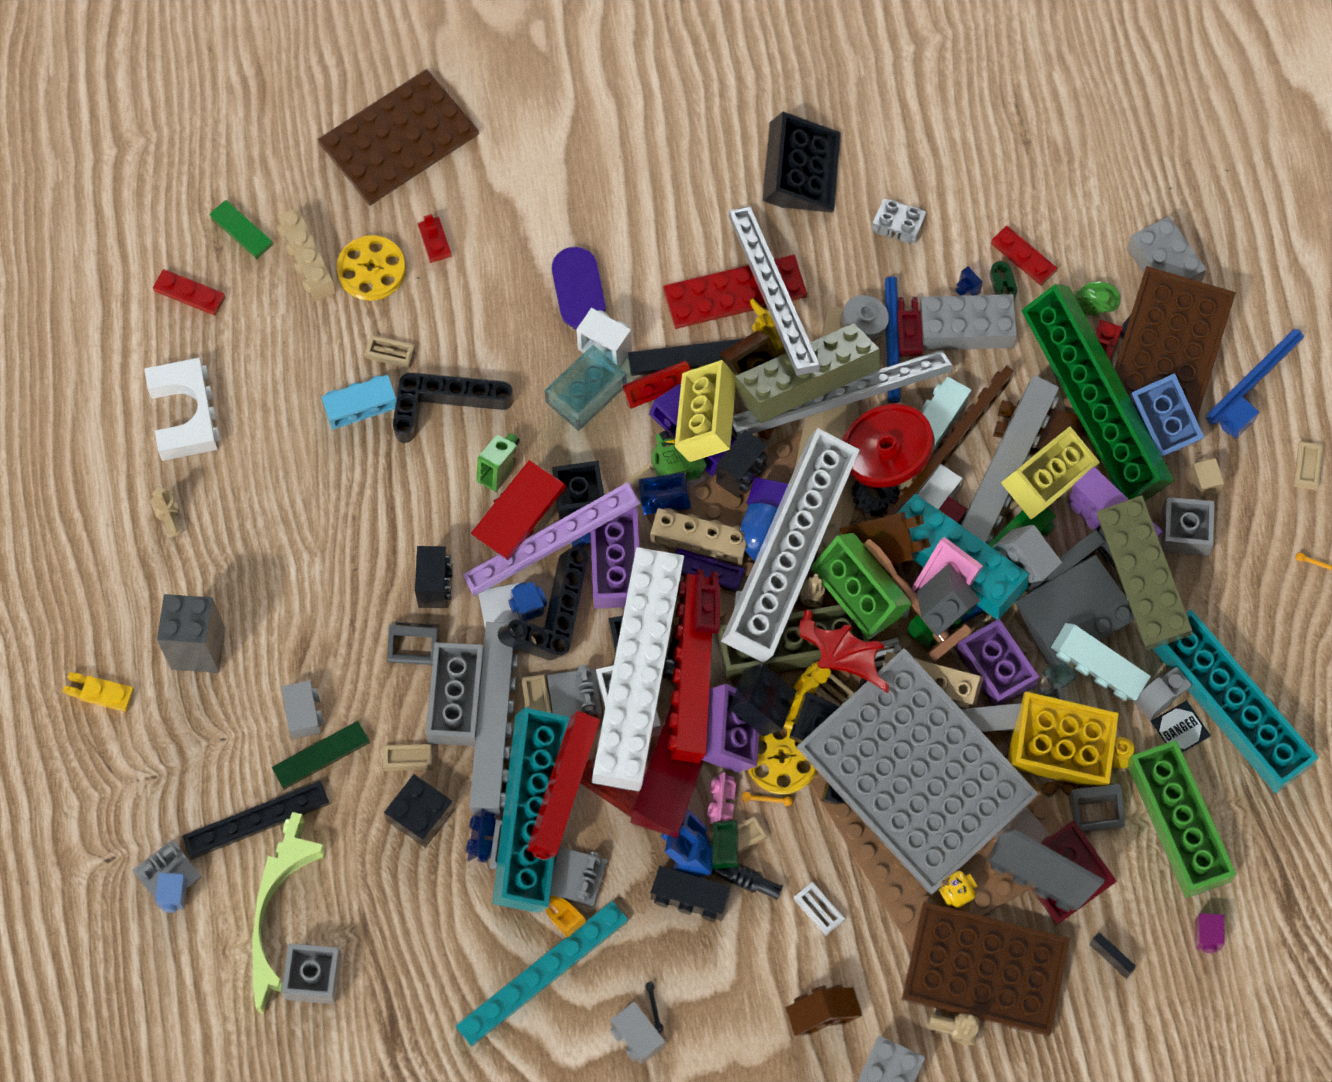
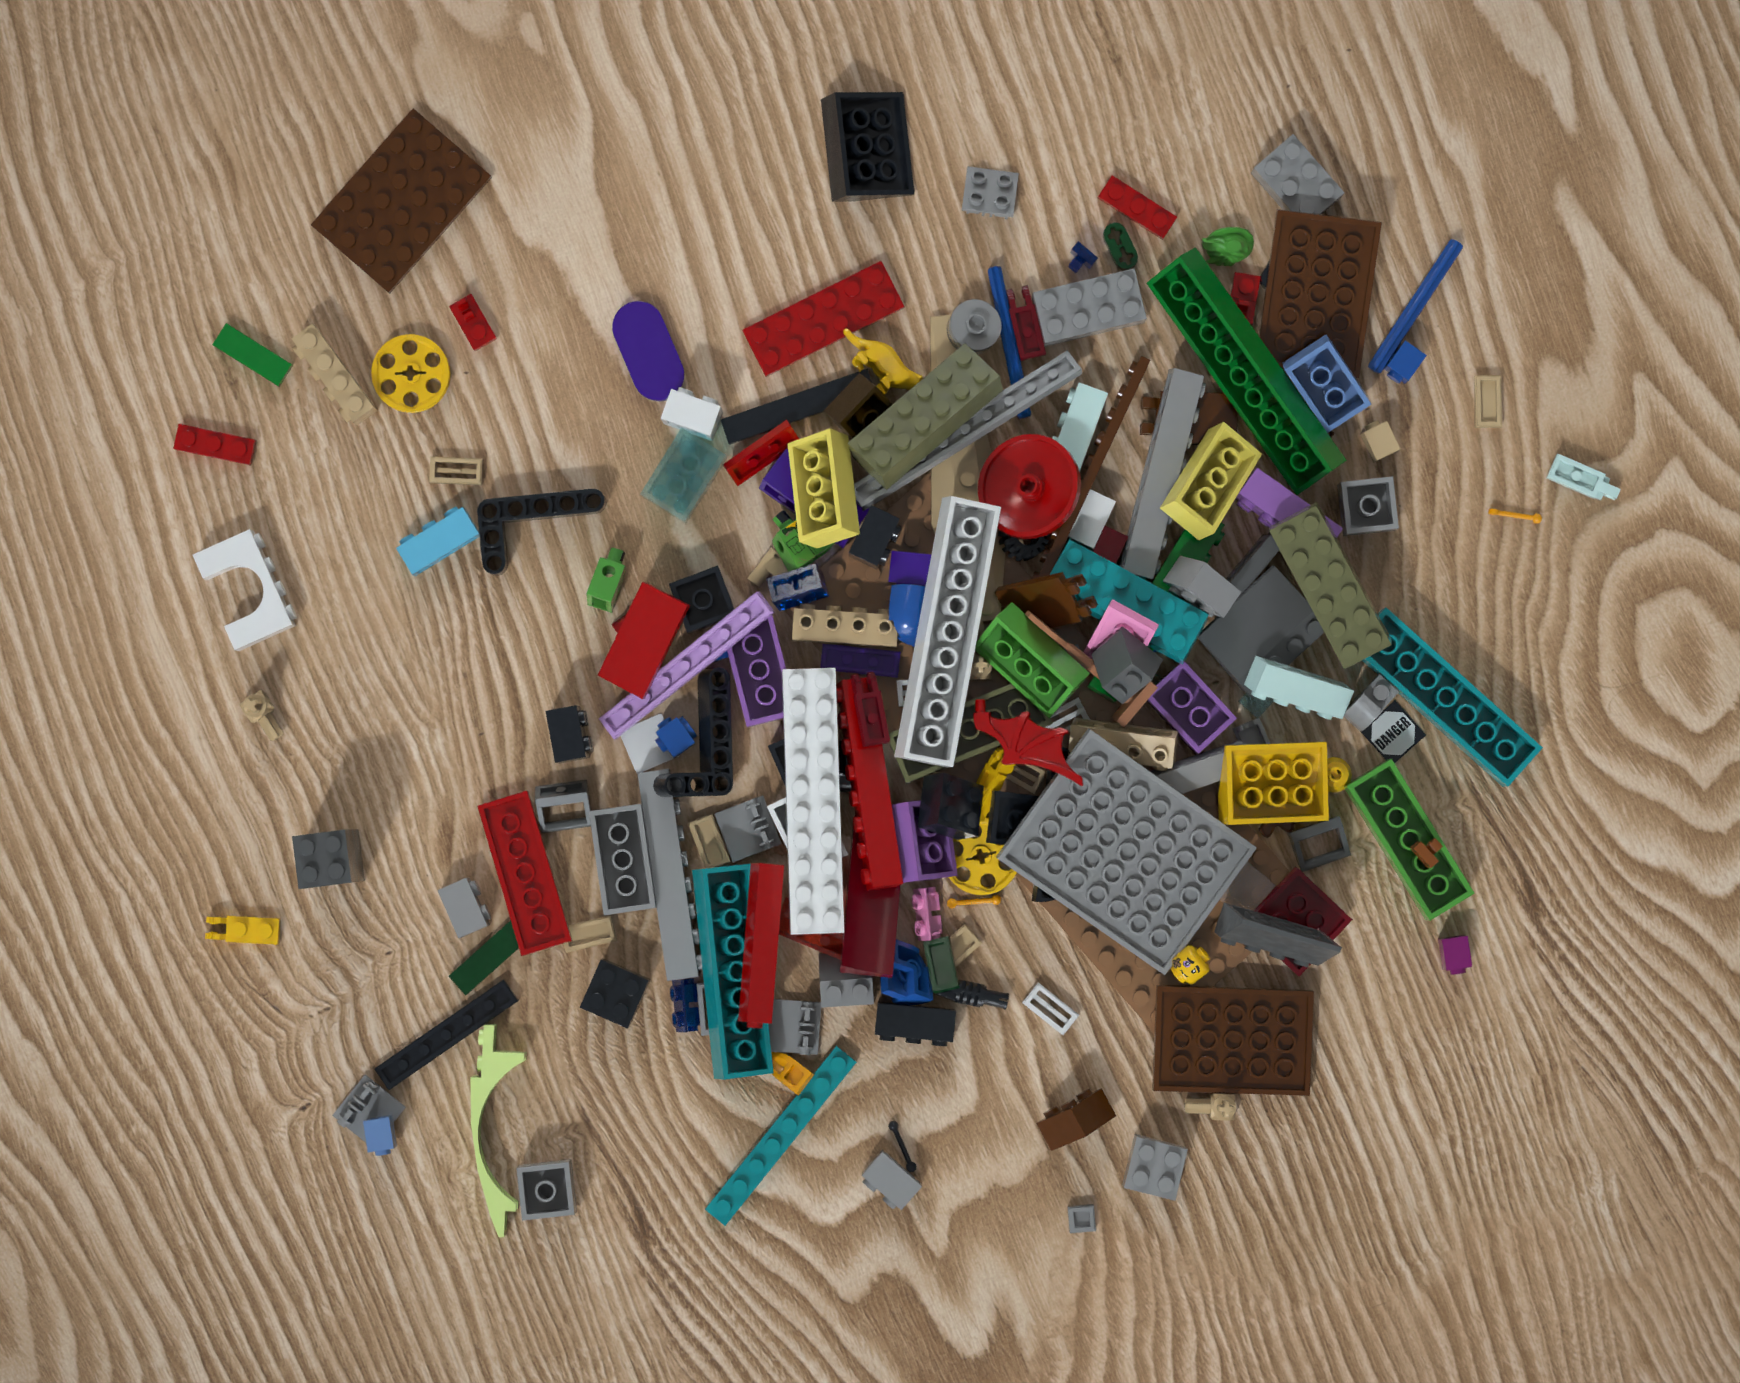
camera: 10 degrees left, 20 degrees up
(363, 690) = (524, 873): none -> red plate
(632, 846) = (842, 988): none -> light grey slope
(774, 291) = (868, 323): plate -> none
(1112, 955) = (1360, 998): black tile -> none
(1196, 825) = (1426, 852): none -> dark orange tile

